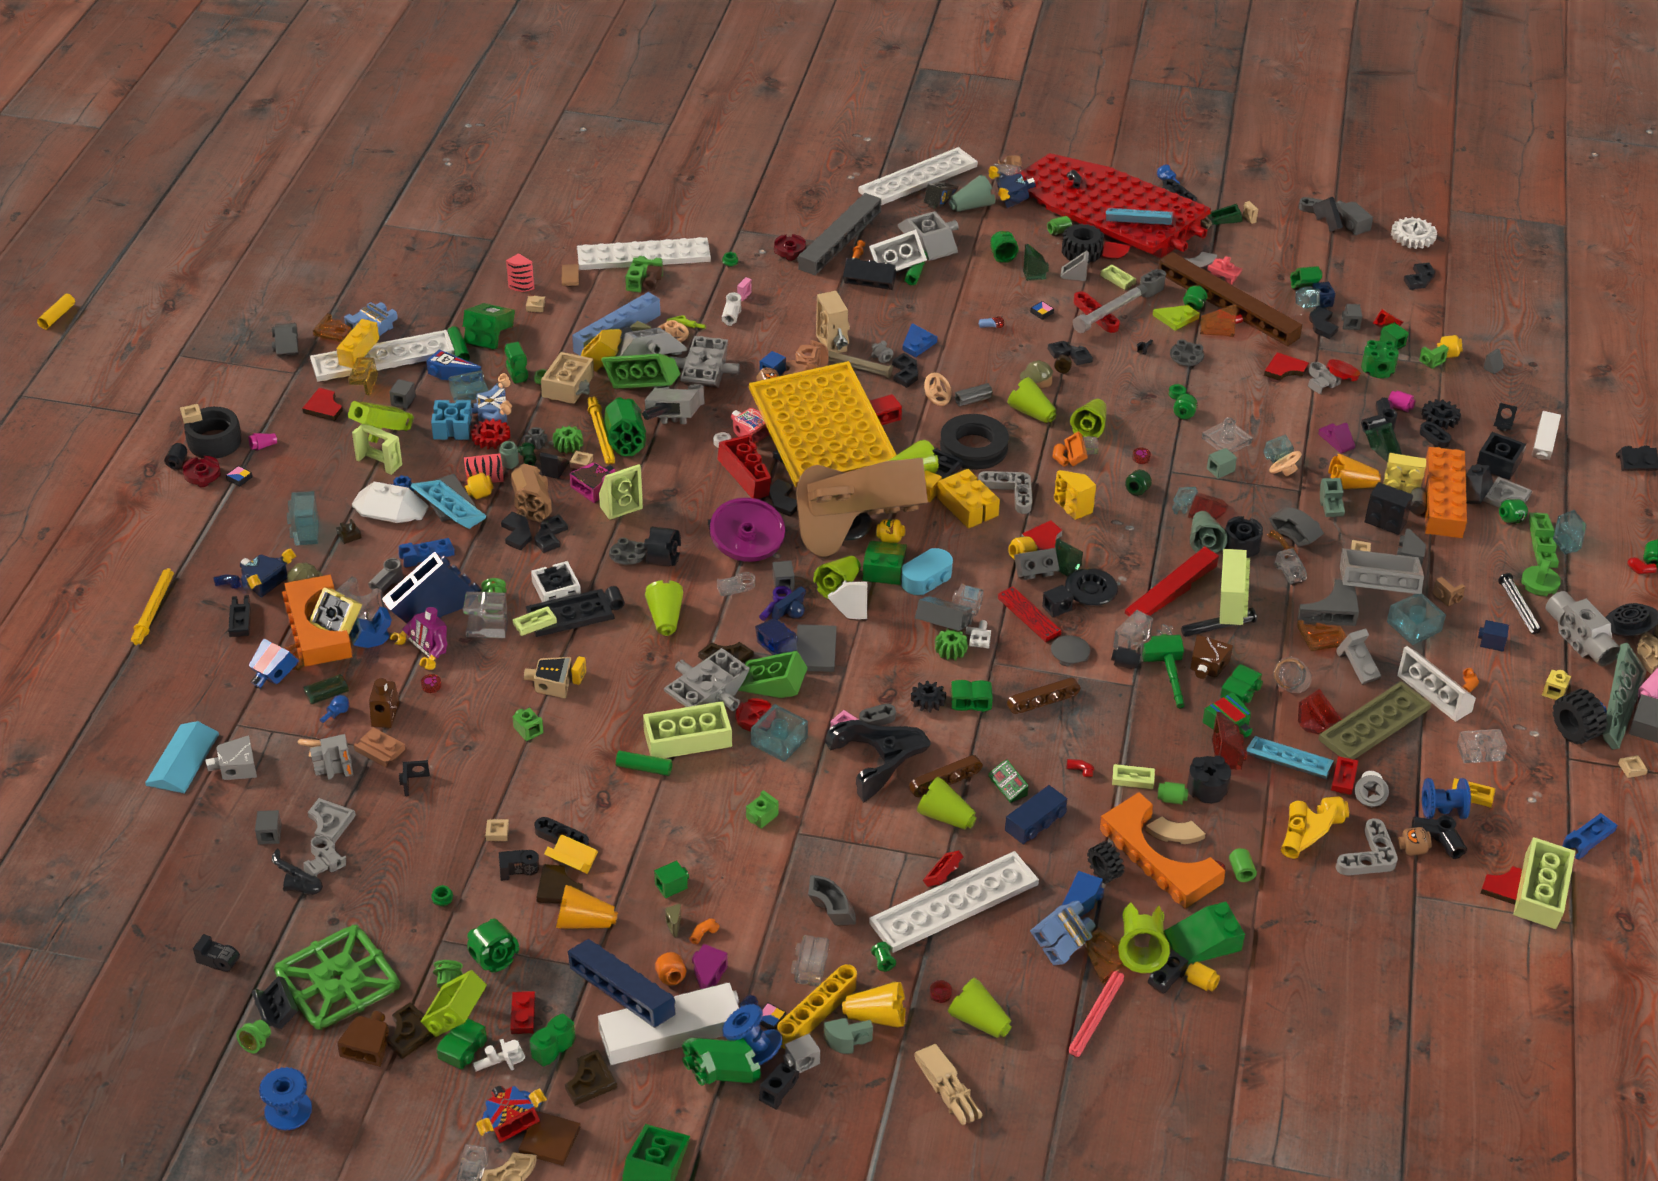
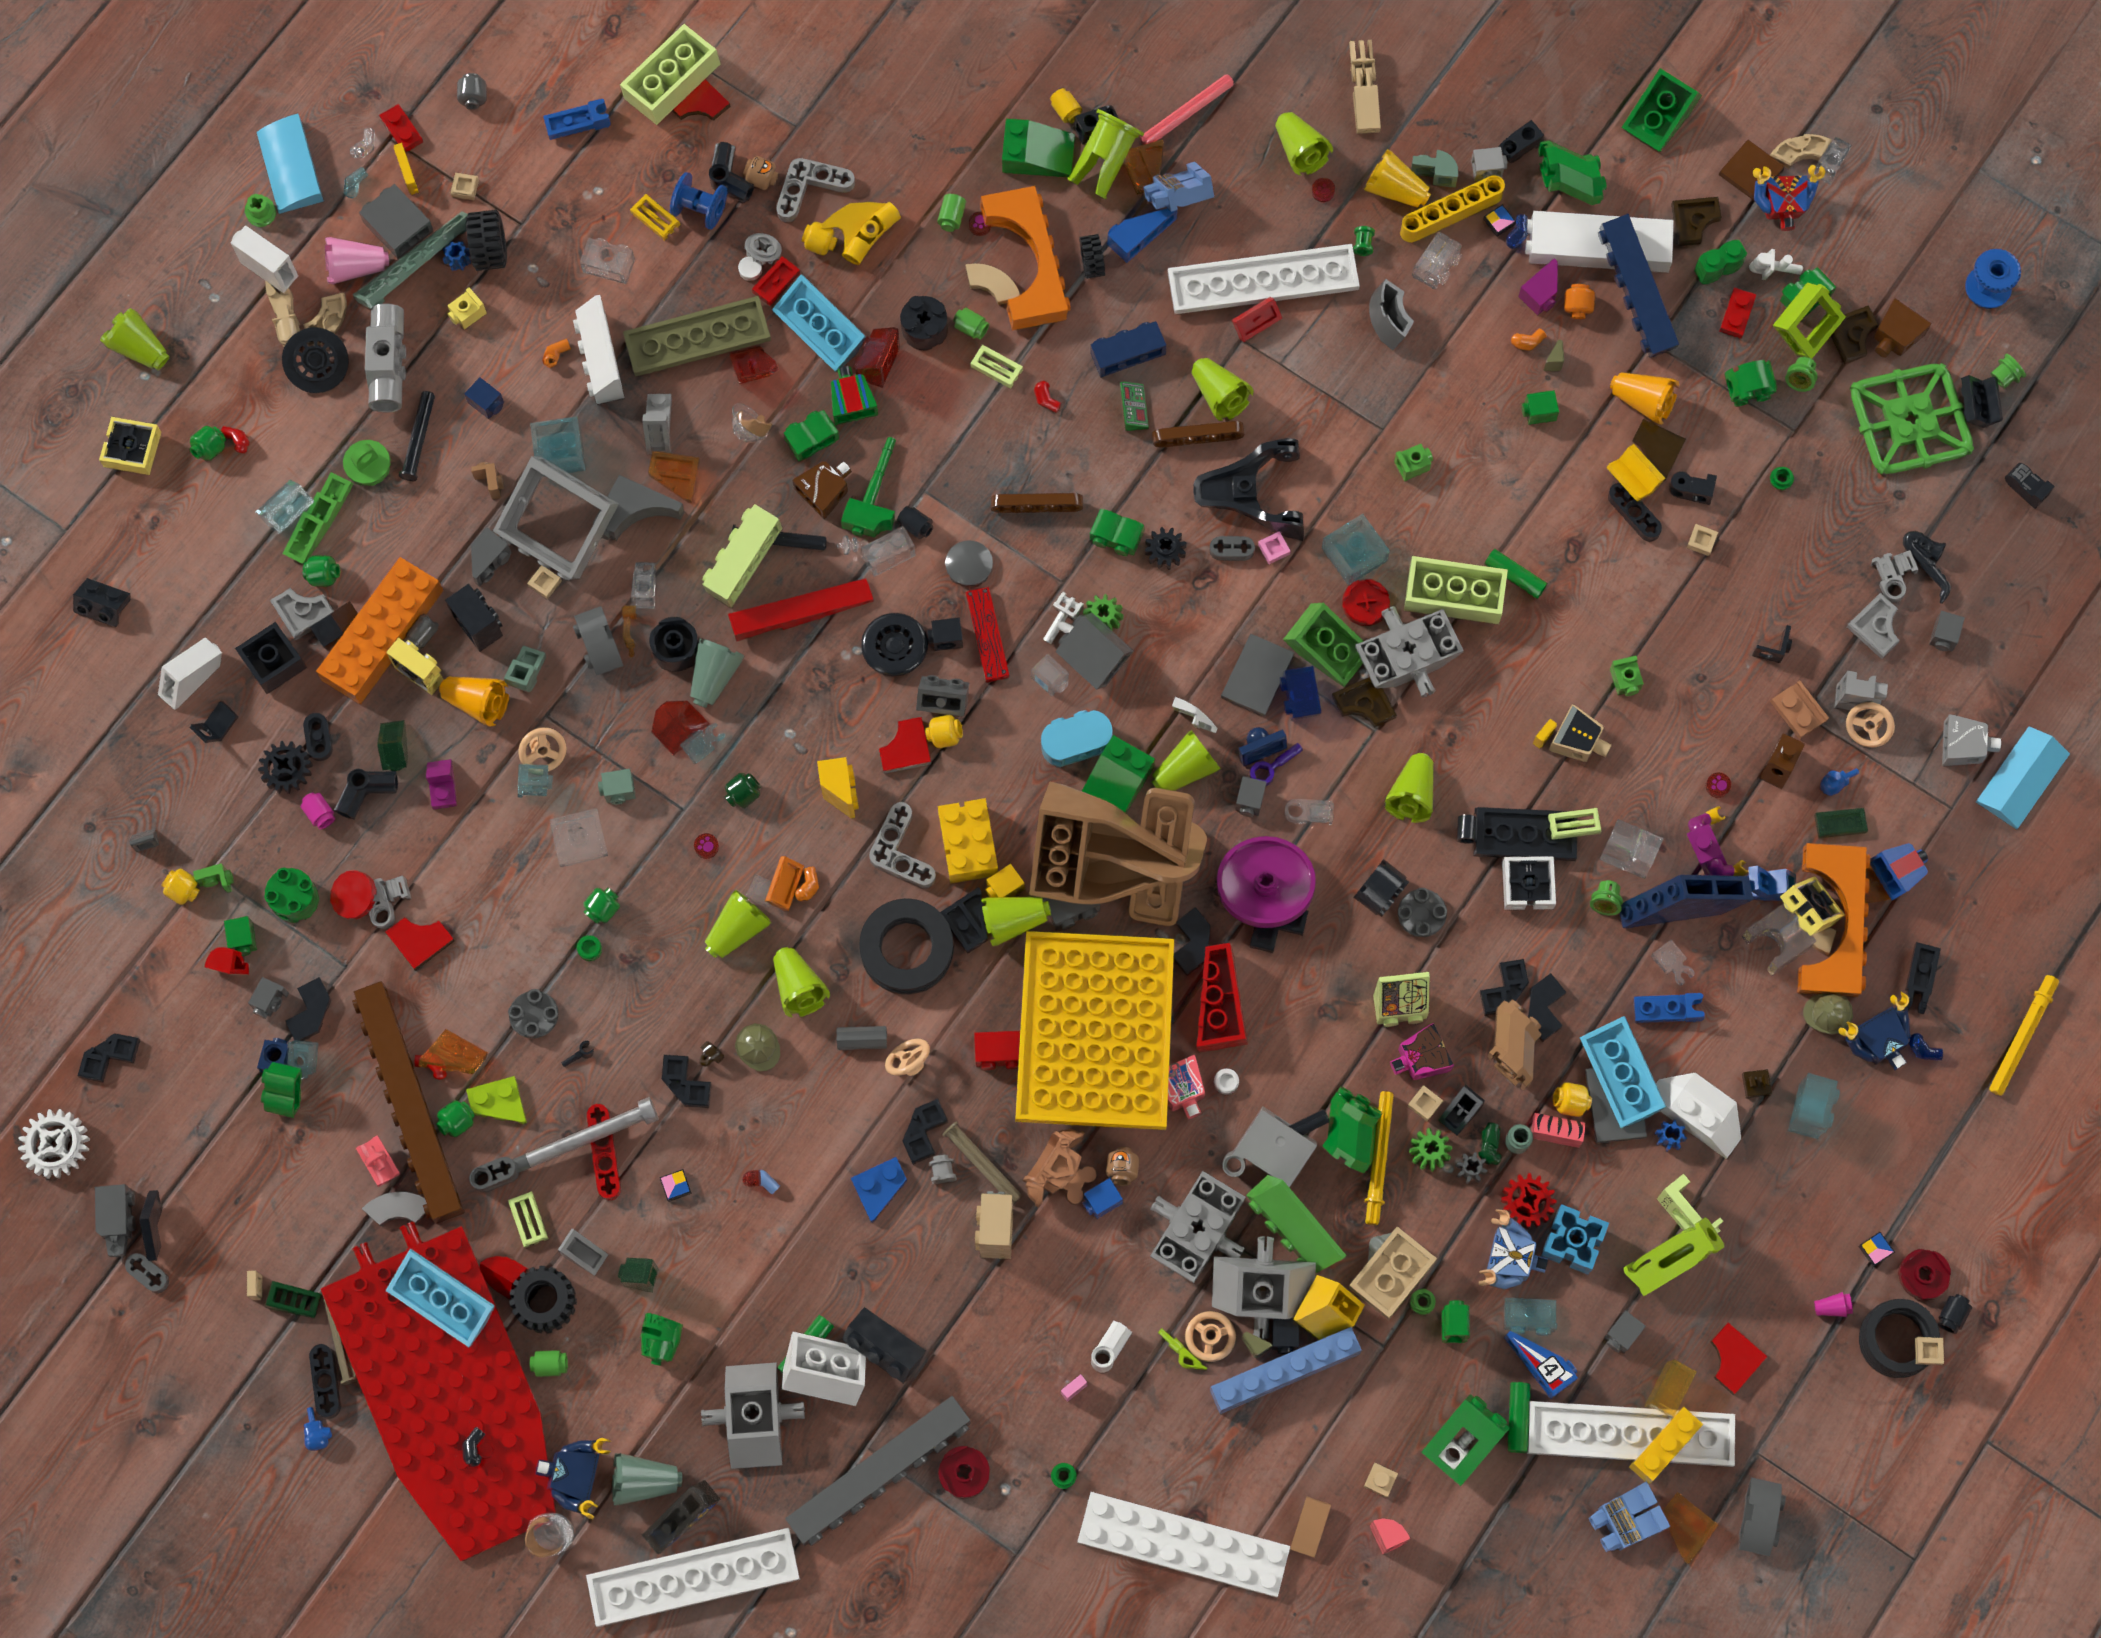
camera: 155 degrees left, 30 degrees up
(389, 574) = (1730, 974): light grey piece -> none
(644, 269) = (1200, 1489): bright green hips -> none
(745, 1024) = (1533, 181): blue hose -> none
(858, 250) = (870, 1421): orange piece -> none
(1068, 557) = (899, 692): clear green slope -> none

